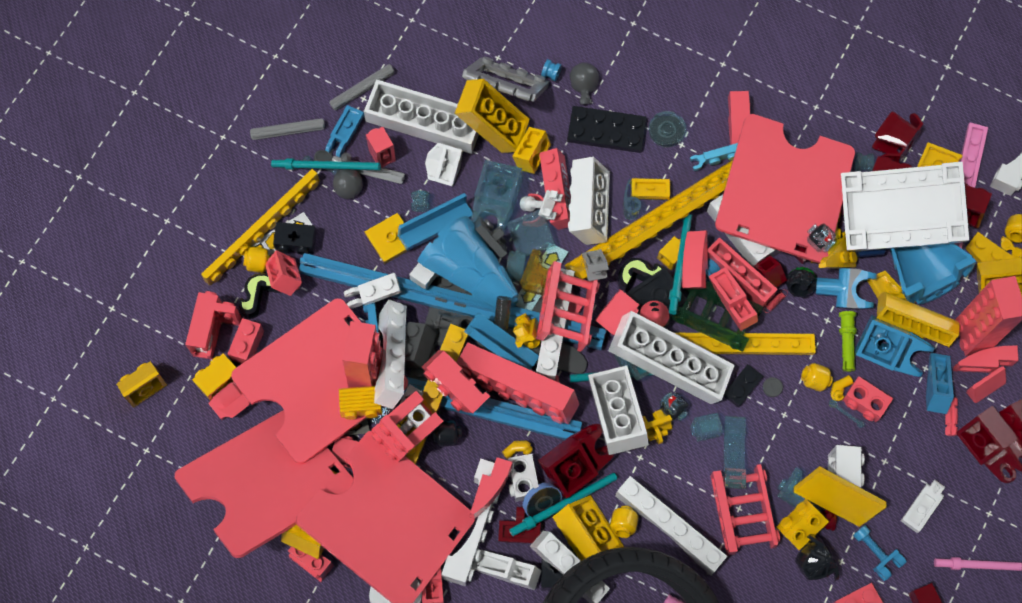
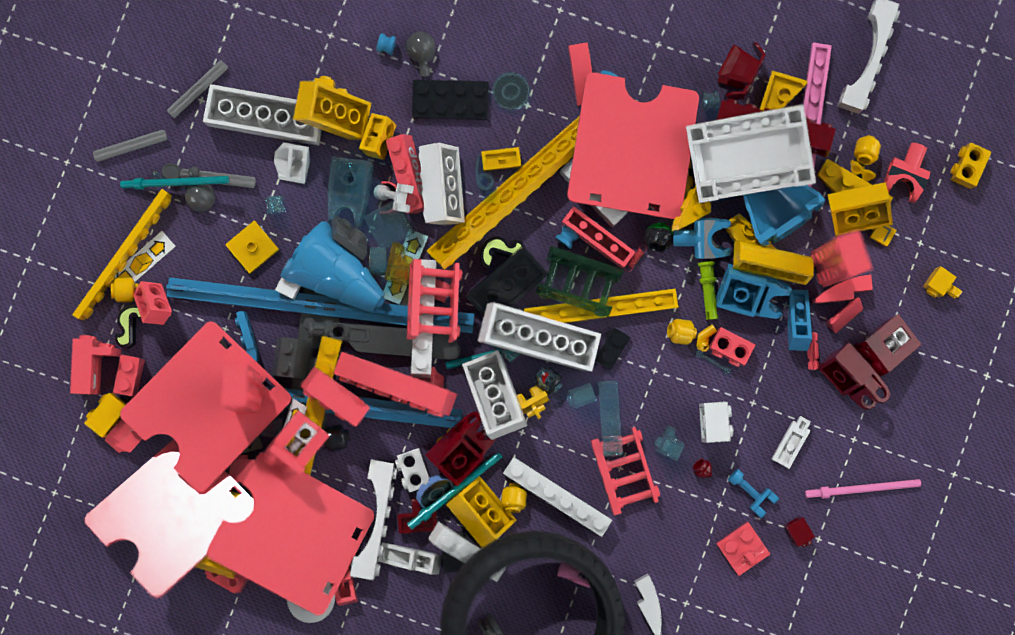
camera: 10 degrees left, 15 degrees up
(141, 384) = (35, 432): yellow slope -> none
(287, 232) = (147, 258): black brick -> none
(344, 129) = (187, 138): dark azure hinge -> none
(358, 402) = (247, 426): yellow brick -> none
(374, 291) = (244, 309): white hinge -> none
(380, 146) = (226, 155): coral brick -> none
(390, 380) = (272, 404): white arch -> none
(432, 222) = (293, 226): dark azure panel -> none
(490, 486) = (383, 489): coral slope -> none
(500, 342) = (375, 349): dark azure panel -> none
(502, 312) = (371, 320): clear smoke piece -> none
(517, 446) = (405, 439): yellow arm -> none
(526, 331) = (397, 331): yellow hips -> none
(537, 82) = (340, 52): light grey hinge -> none
(595, 265) = (454, 255): light grey slope -> none
(615, 309) = (483, 293): coral brick -> none
(655, 311) = (518, 294): coral hat -> none
(669, 253) = (532, 224): yellow brick -> none
(675, 293) = (536, 274): teal bar -> none
(695, 260) = (552, 234): coral slope -> none
(714, 156) = (561, 116): medium azure plate -> none
(733, 299) = (593, 267): coral slope -> none
(771, 270) = (627, 232): dark red brick -> none
(772, 387) = (640, 345): dark grey piece -> none
(802, 522) = (679, 479): yellow brick -> none
(816, 561) = (693, 512): black piece -> none
(821, 237) = (672, 196): clear light blue head -> none
(839, 496) = (711, 451): yellow tile -> none

